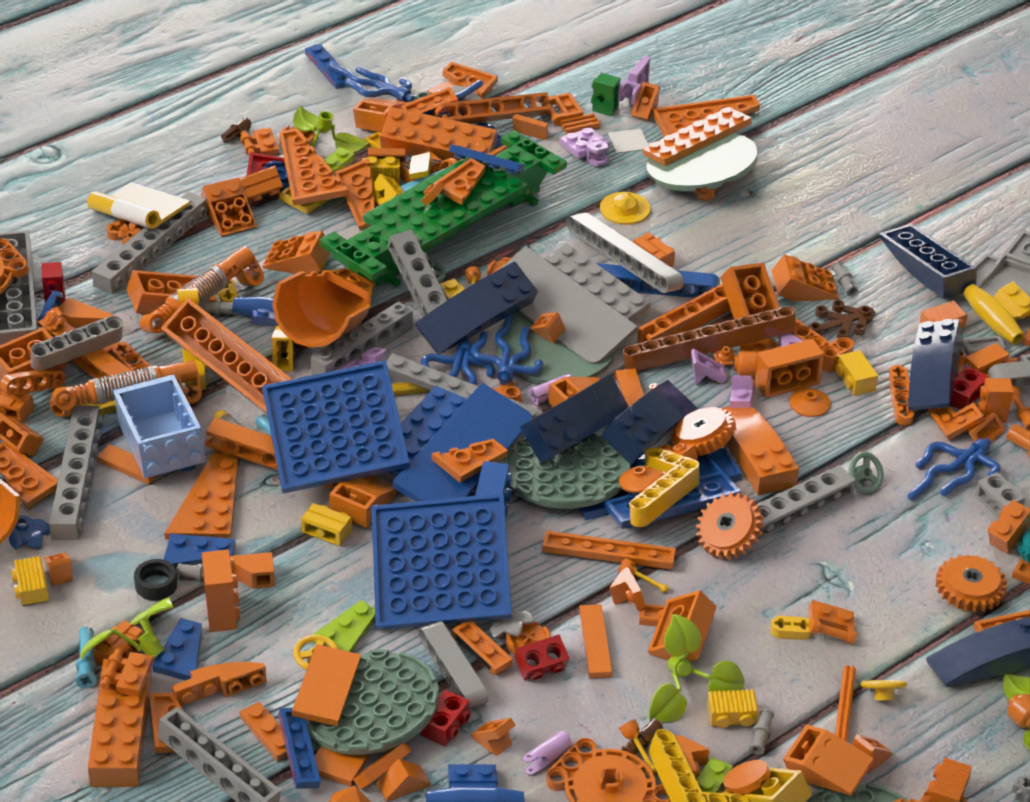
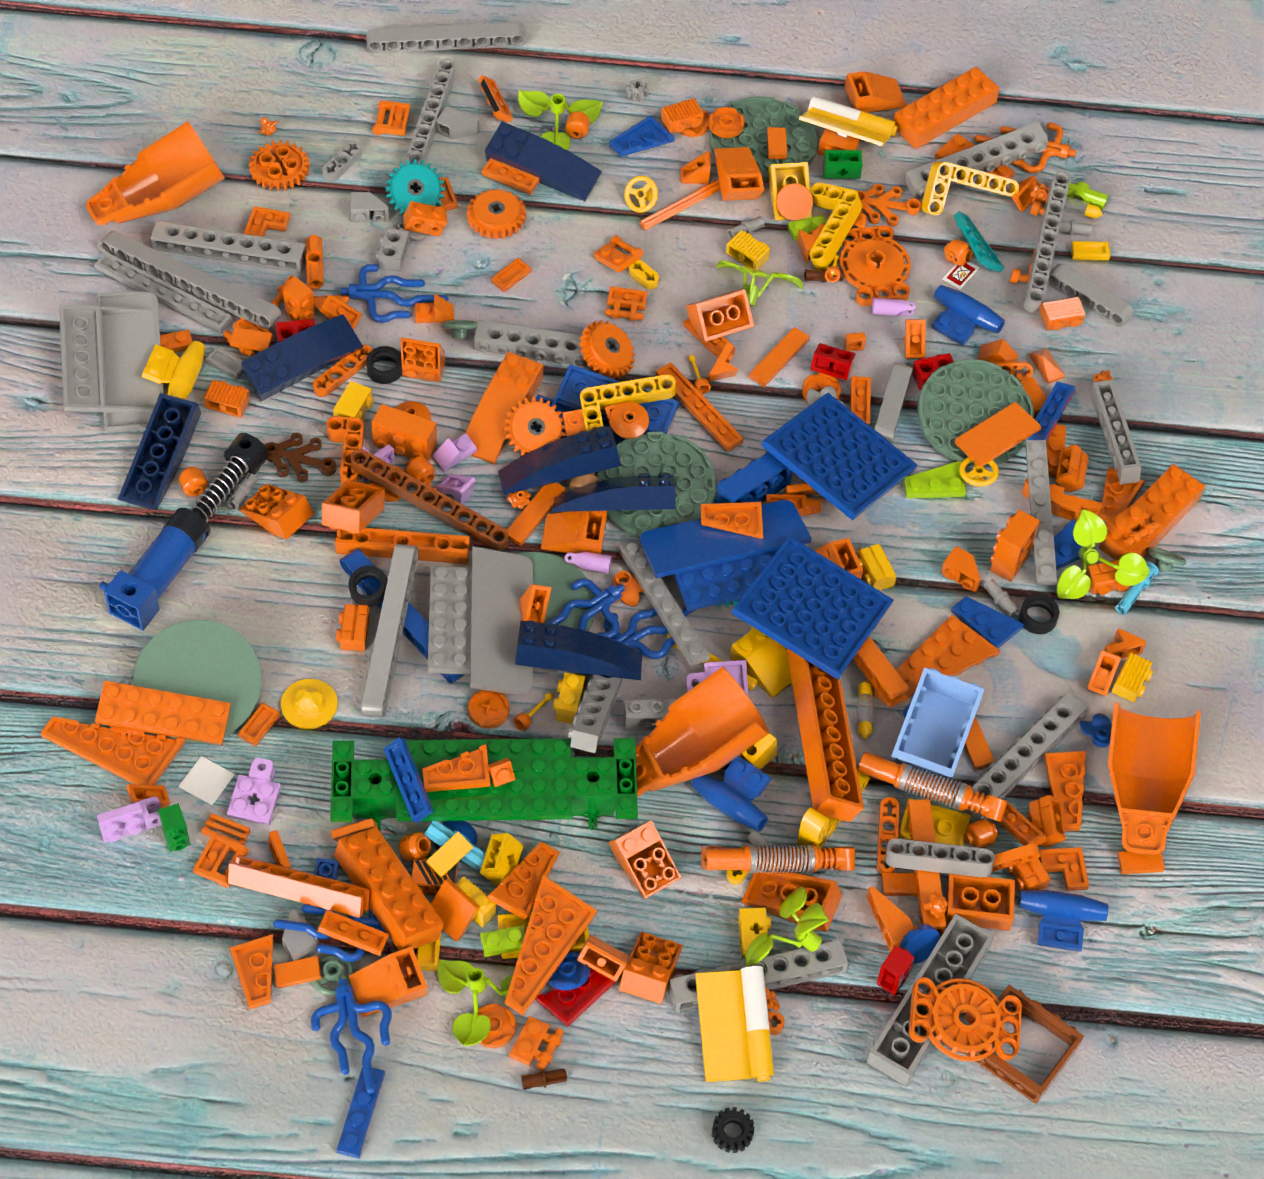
camera: 140 degrees left, 15 degrees up
(39, 419) = (1021, 827): none -> orange tile
(58, 599) = (1125, 644): none -> orange slope
(60, 686) = (1166, 559): none -> sand green piece
(88, 170) = (733, 1117): none -> black tyre
(132, 253) = (810, 919): none -> lime plant
(177, 258) = (751, 921): none -> yellow brick
(228, 647) = (1041, 509): none -> light grey plate
(232, 711) = (1072, 468): none -> orange brick
(544, 693) = (855, 341): none -> orange plate
(638, 179) = (259, 724): none -> orange tile
(675, 258) = (366, 572): none -> black tyre
(775, 593) = (626, 298): none -> orange plate
(808, 177) = (136, 593): none -> piece
(852, 419) = (422, 359): none -> orange slope
(879, 404) = (384, 352): none -> black tyre
(881, 259) = (193, 480): none -> orange head
(891, 551) = (511, 275): none -> orange tile
(902, 479) = (434, 312): none -> orange slope
(962, 743) = (641, 137): none -> blue wing

